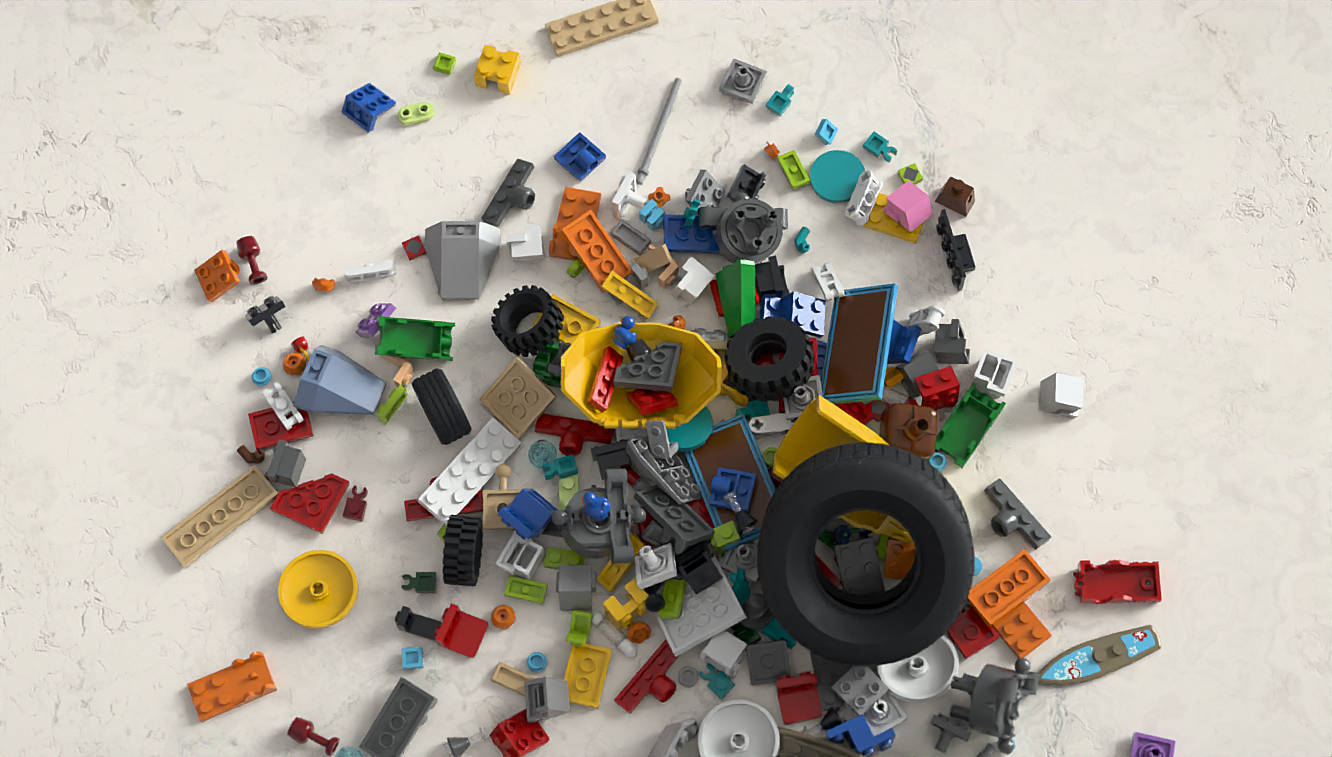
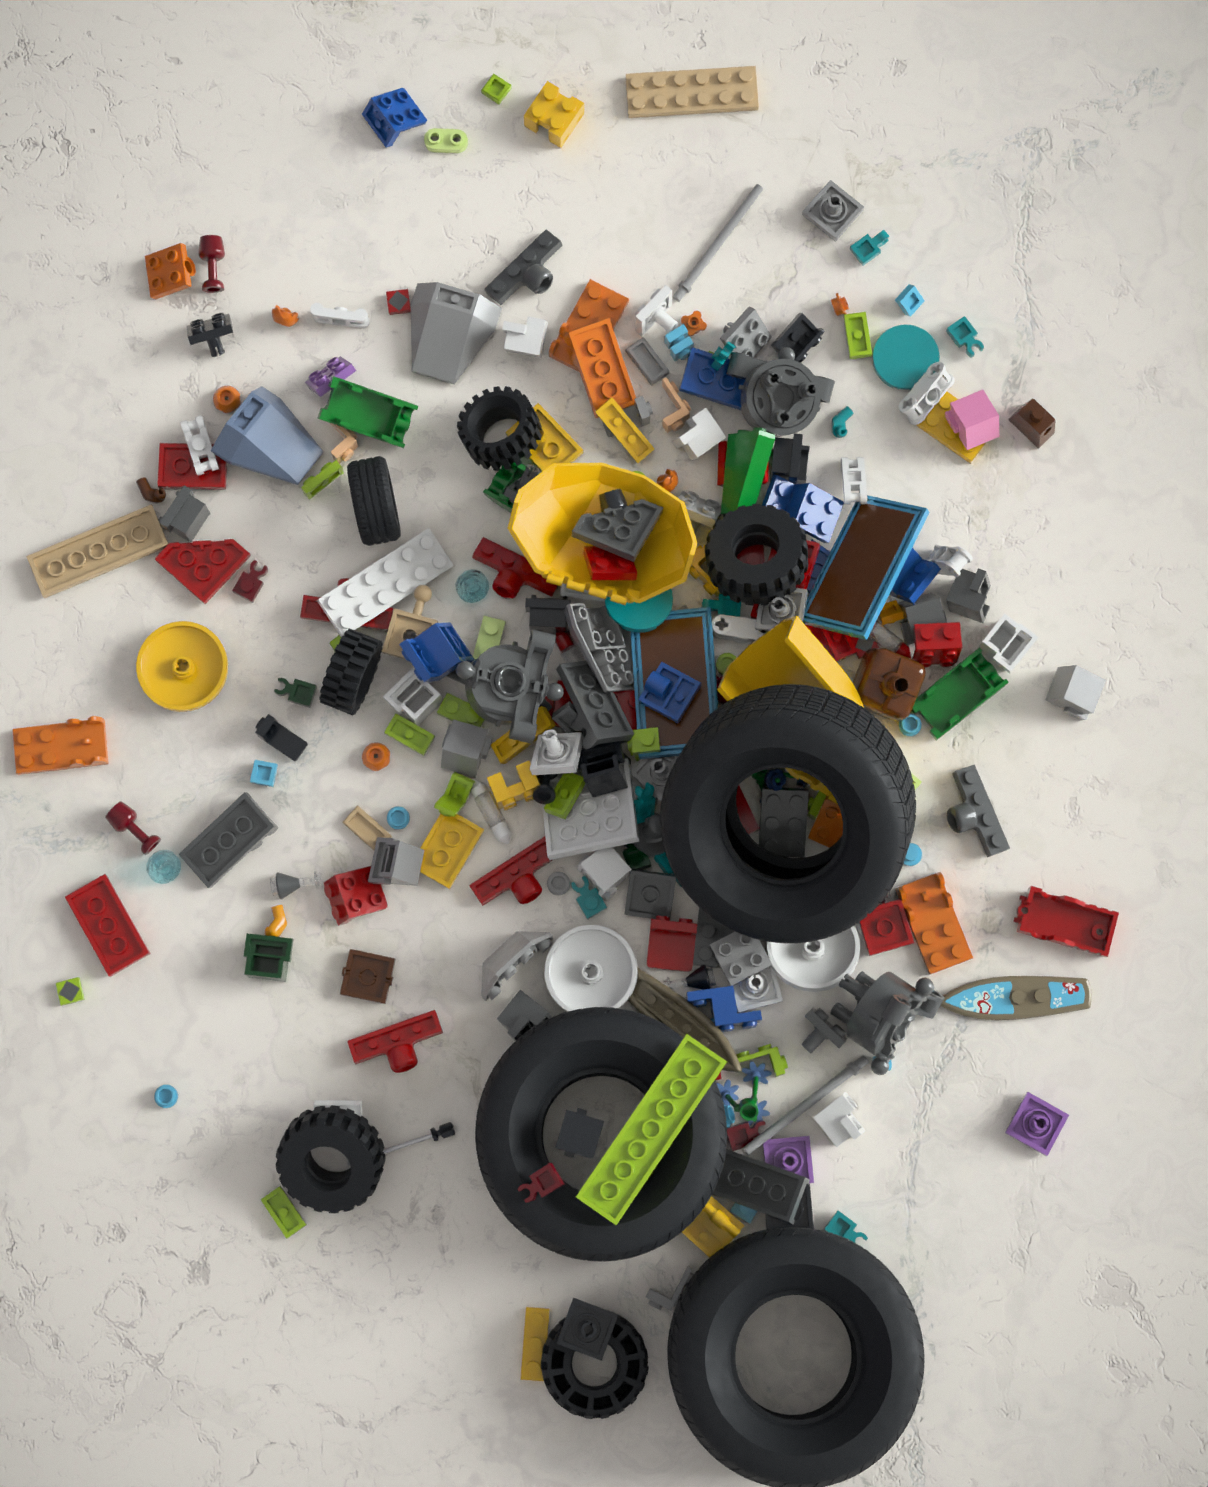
camera: 15 degrees right, 10 degrees up
(261, 376) = (186, 403): medium azure plate -> none
(300, 345) = (240, 381): red hinge -> none
(460, 632) = (325, 760): red bracket -> none
(518, 397) = (464, 513): tan plate -> none
(563, 467) = (492, 607): teal plate -> none
(575, 268) = (572, 380): lime tile -> none
(580, 157) = (617, 248): blue plate -> none
(596, 506) = (507, 670): blue animal -> none
(604, 379) = (561, 527): red plate -> none
(622, 335) = (599, 478): blue animal -> none
(638, 632) = (519, 818): orange plate -> none
(654, 259) = (664, 396): tan tile -> none
(658, 440) = (602, 613): light grey bracket -> none
(744, 522) = (670, 733): piece -> none
(910, 173) = (990, 380): tile -> none
(957, 250) = (1014, 487): black bracket -> none
(1007, 587) = (939, 892): orange hinge -> none

